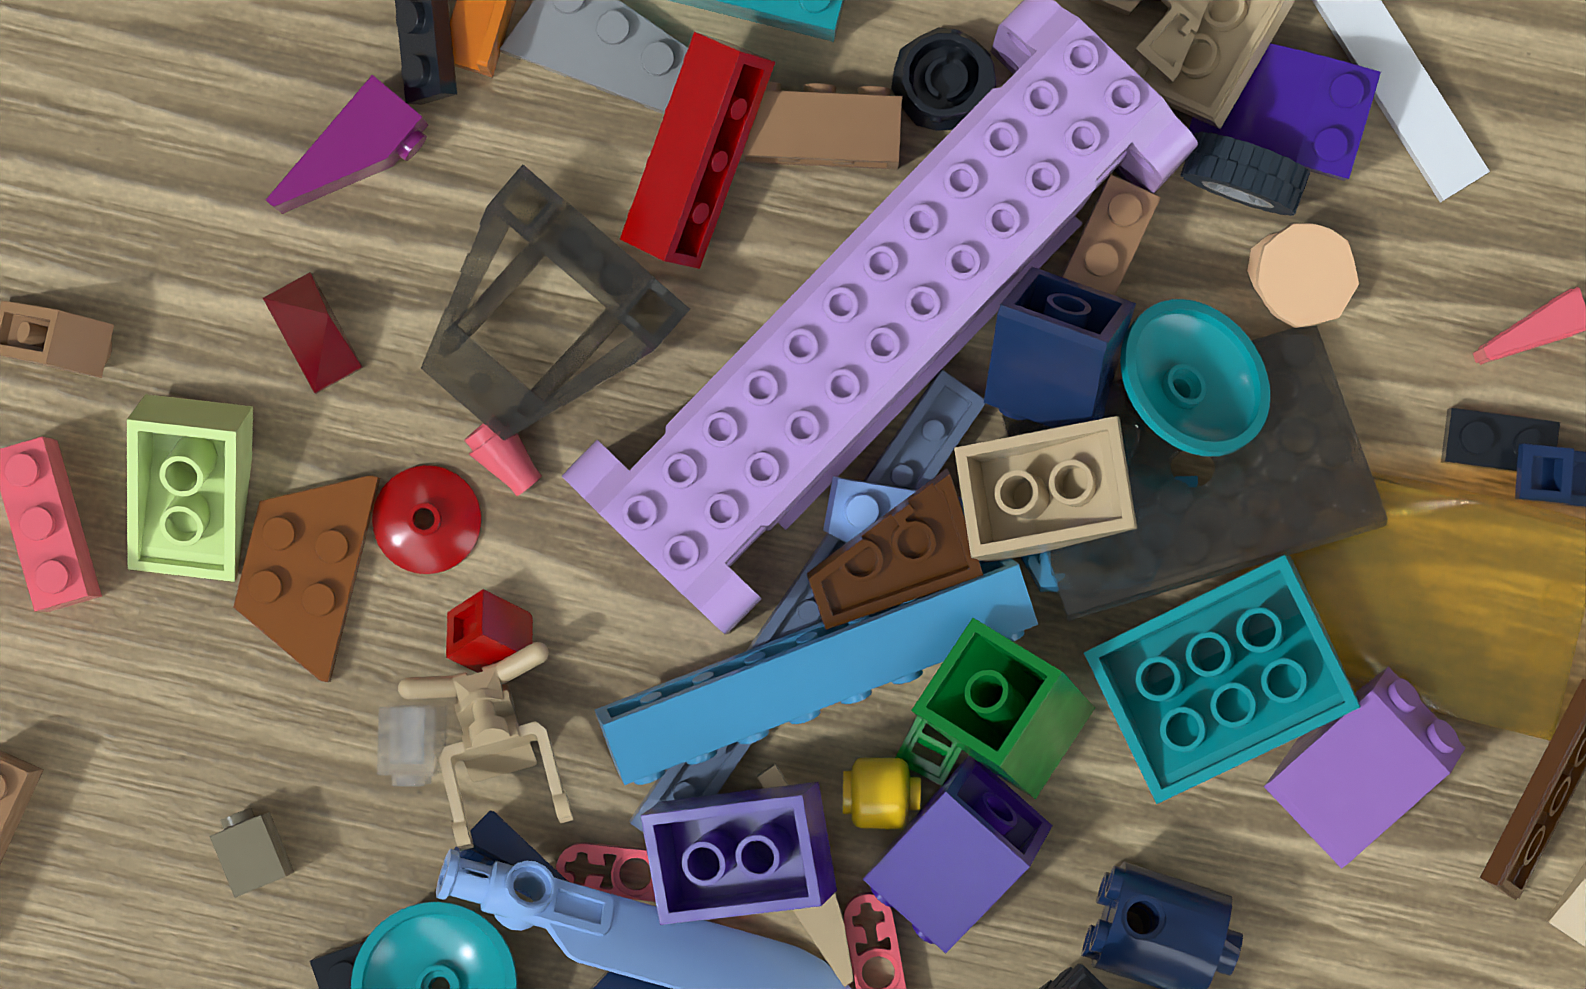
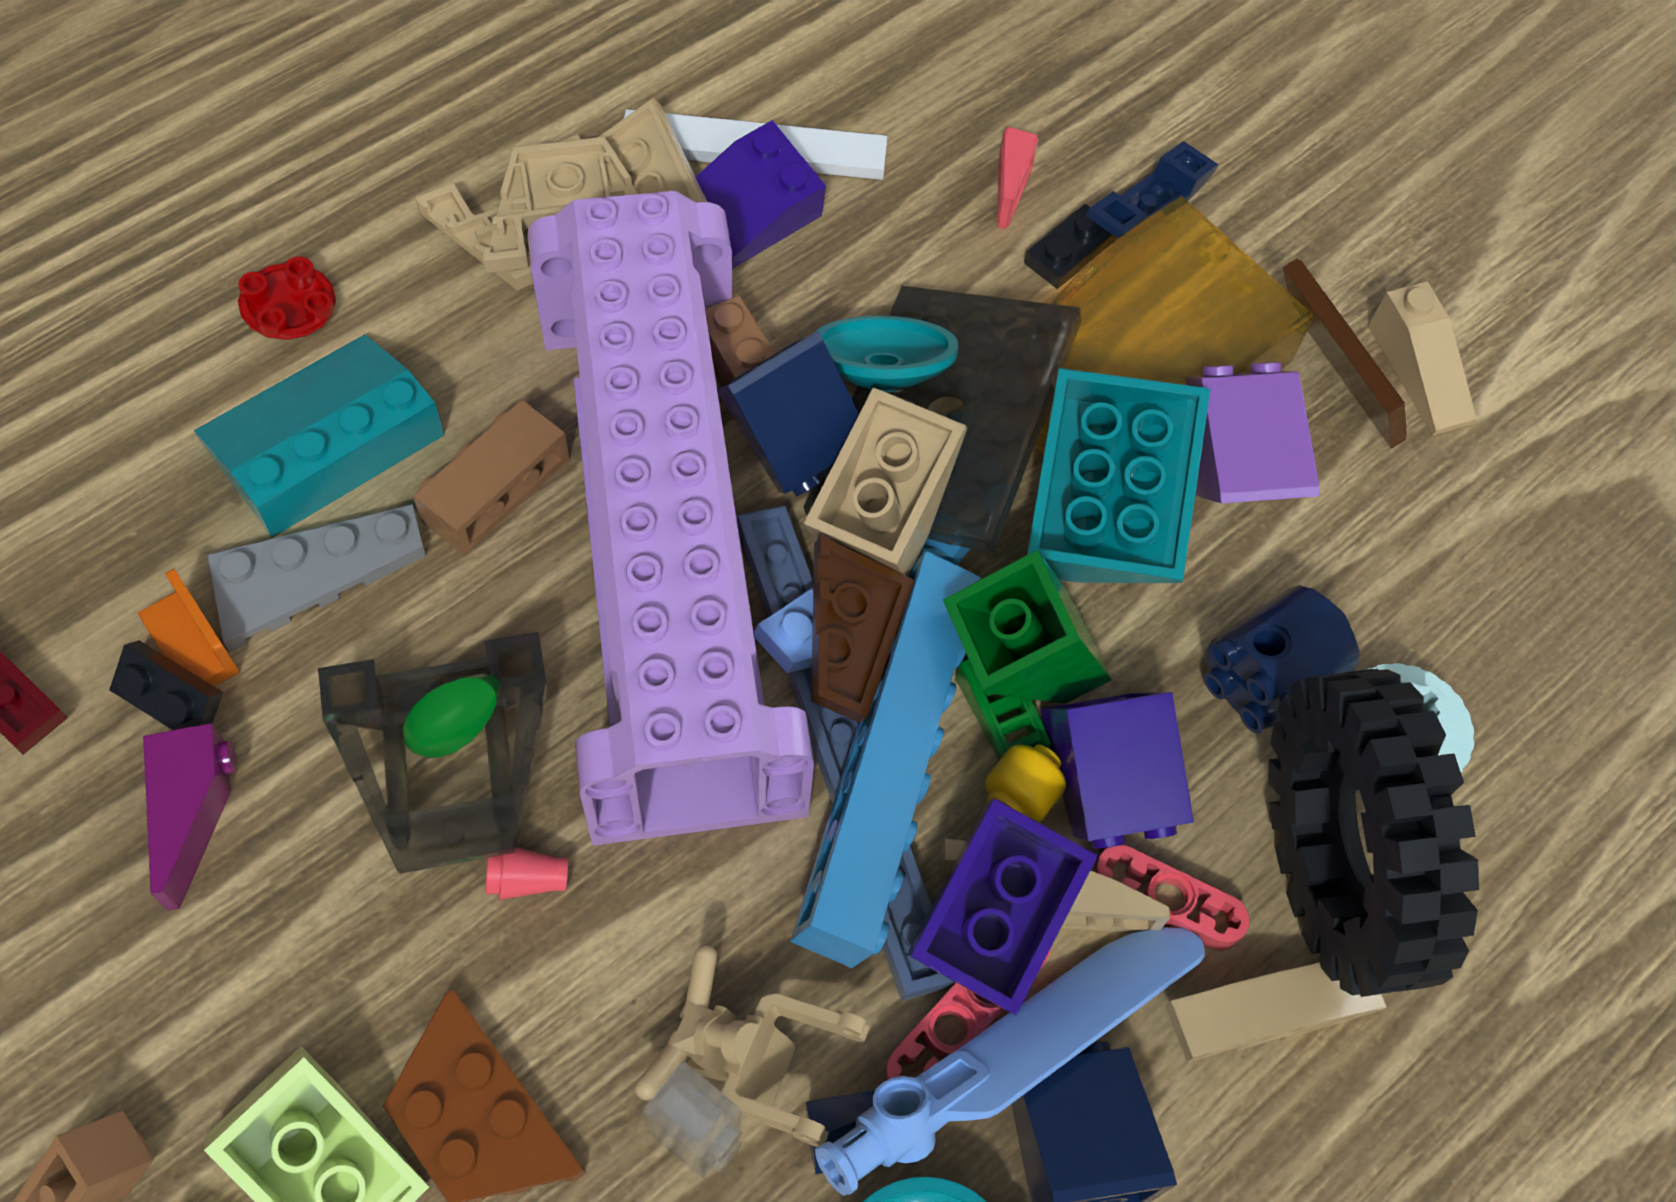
camera: 60 degrees left, 25 degrees down
(312, 332) = (292, 952): dark red slope -> none
(454, 527) = (527, 1008): red dish -> none
(486, 630) = (650, 995): red panel -> none
(572, 297) = (451, 715): none -> green arm
(697, 150) = (428, 549): red brick -> none
(942, 77) = (538, 372): black hat -> none
(1246, 173) = (771, 241): black wheel -> none
(1304, 274) = (862, 269): light nougat hat -> none

